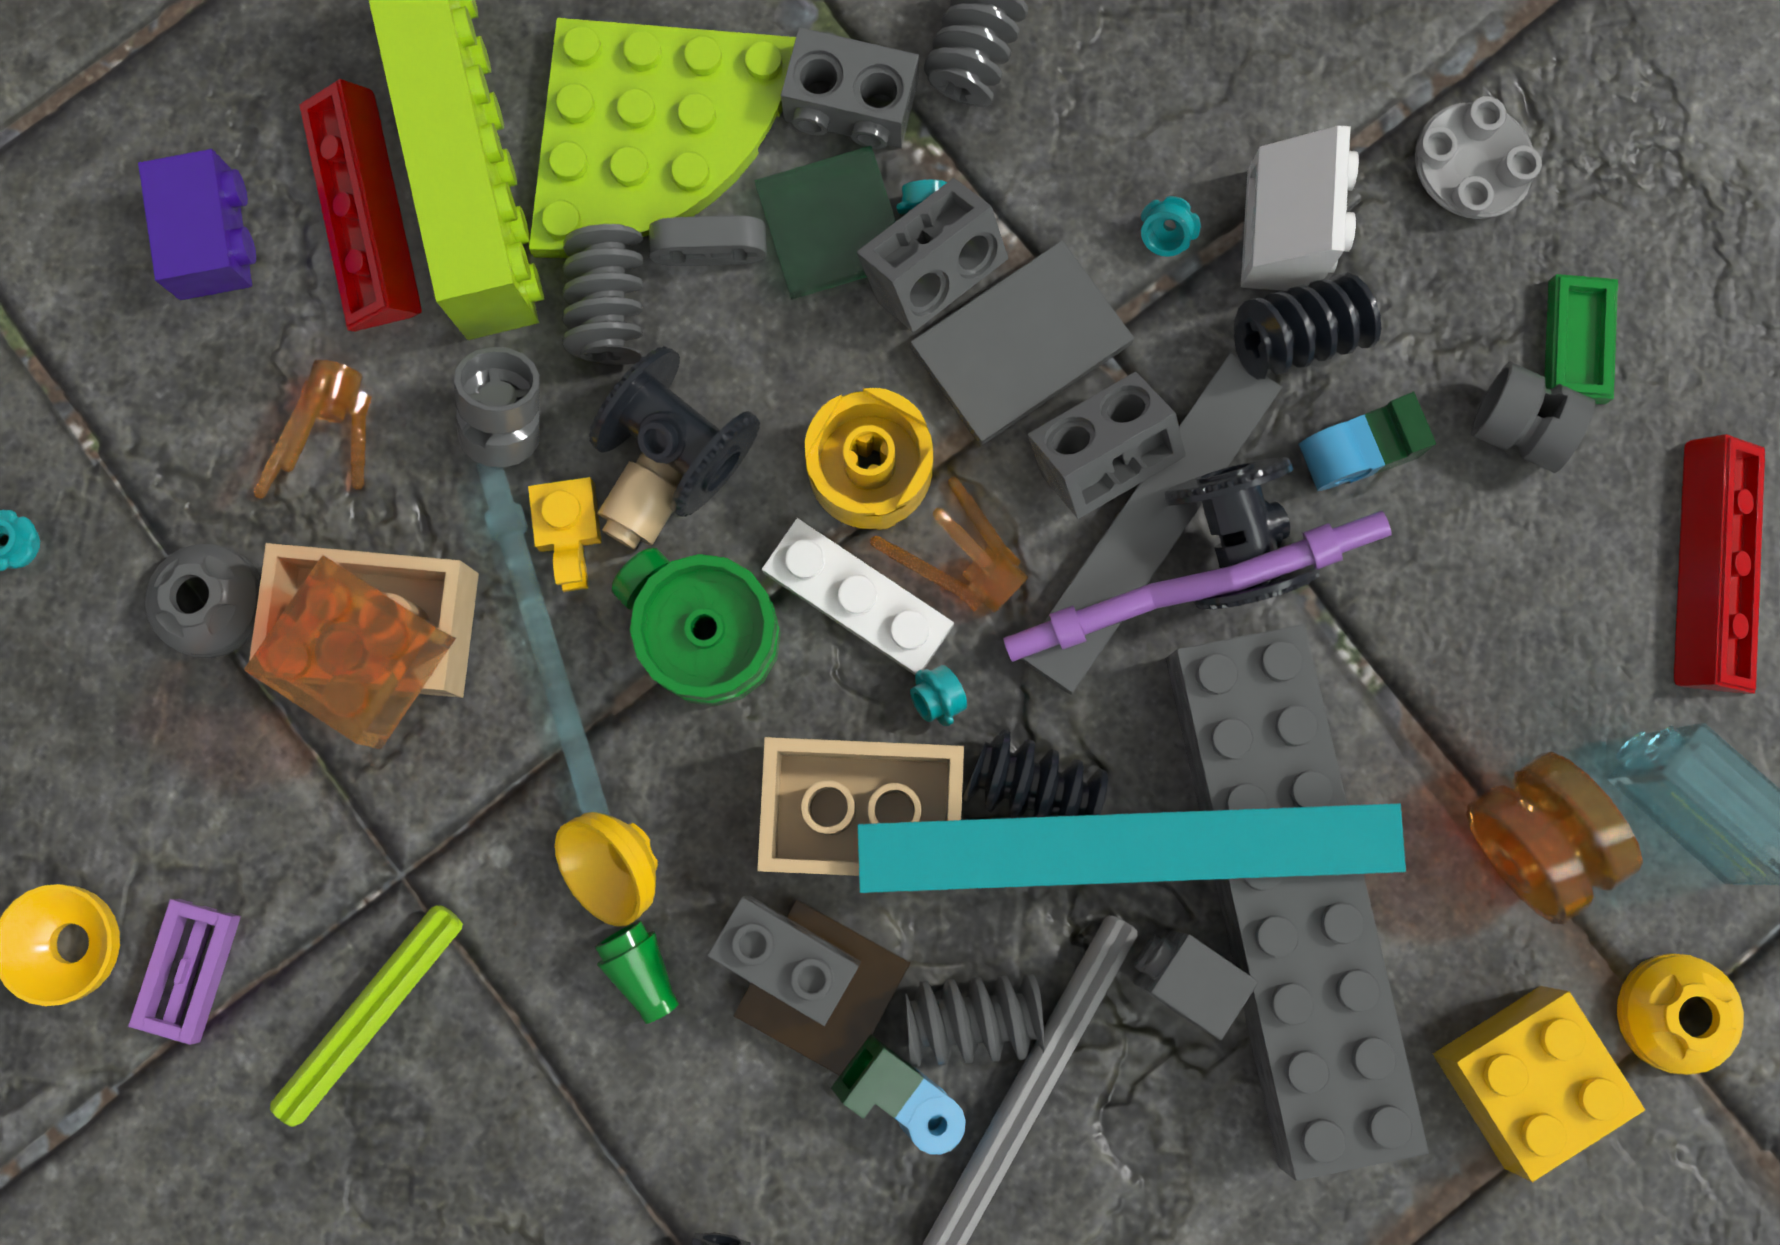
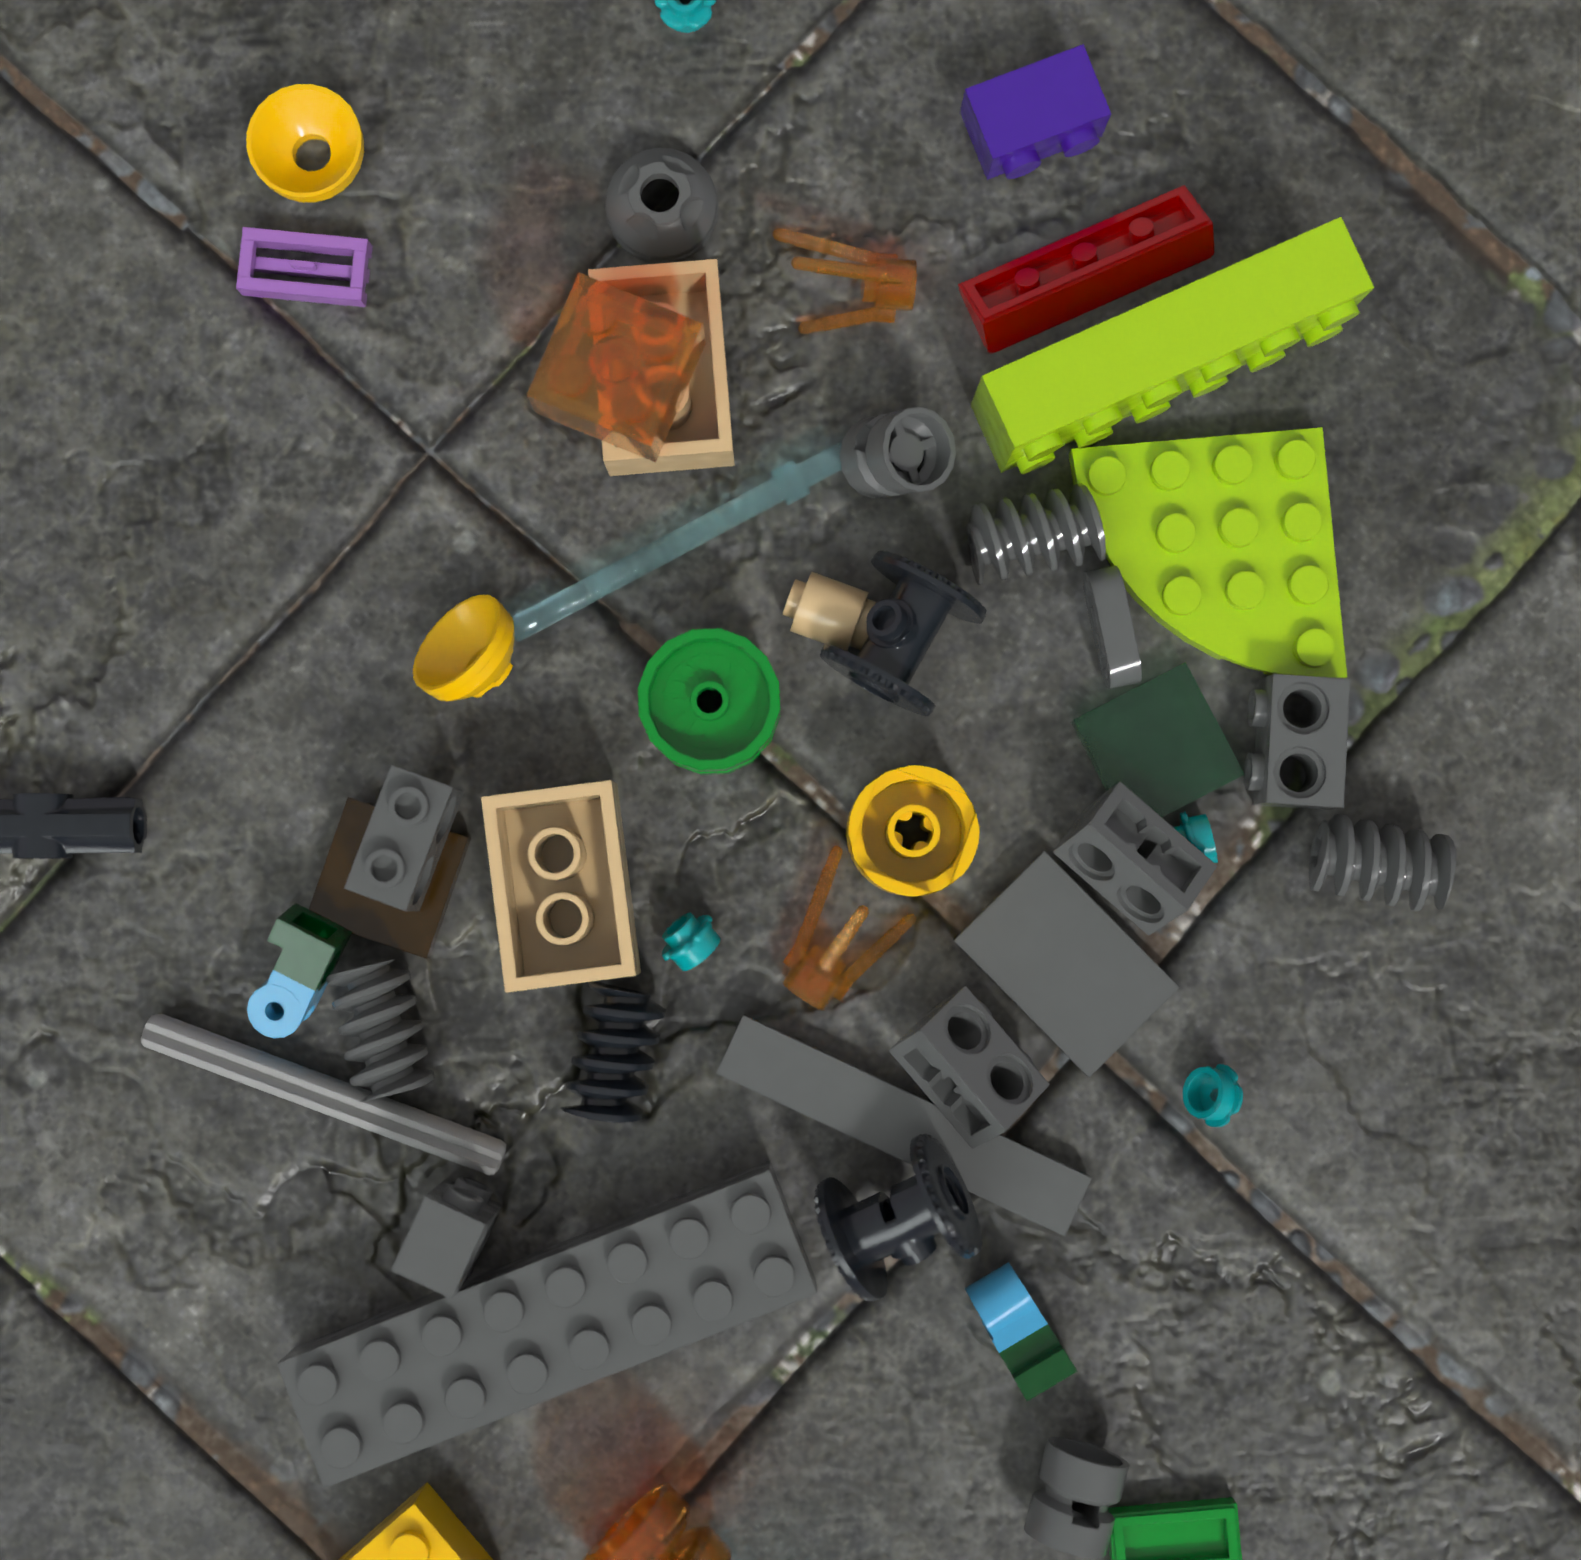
camera: 75 degrees right, 5 degrees up
(365, 1016) = (291, 448): lime axle -> none
(564, 522) = (800, 539): yellow plate -> none
(635, 574) = (756, 626): green tile -> none
(637, 969) = (375, 697): green cone -> none
(857, 597) = (775, 843): white plate -> none
(1131, 848) = (562, 1157): teal tile -> none
(1298, 209) = (1248, 1225): white slope -> none
(1306, 325) = (1132, 1250): black piece -> none
(1319, 547) = (890, 1296): medium lavender bar -> none
(1476, 159) = (1345, 1403): light grey dish -> none

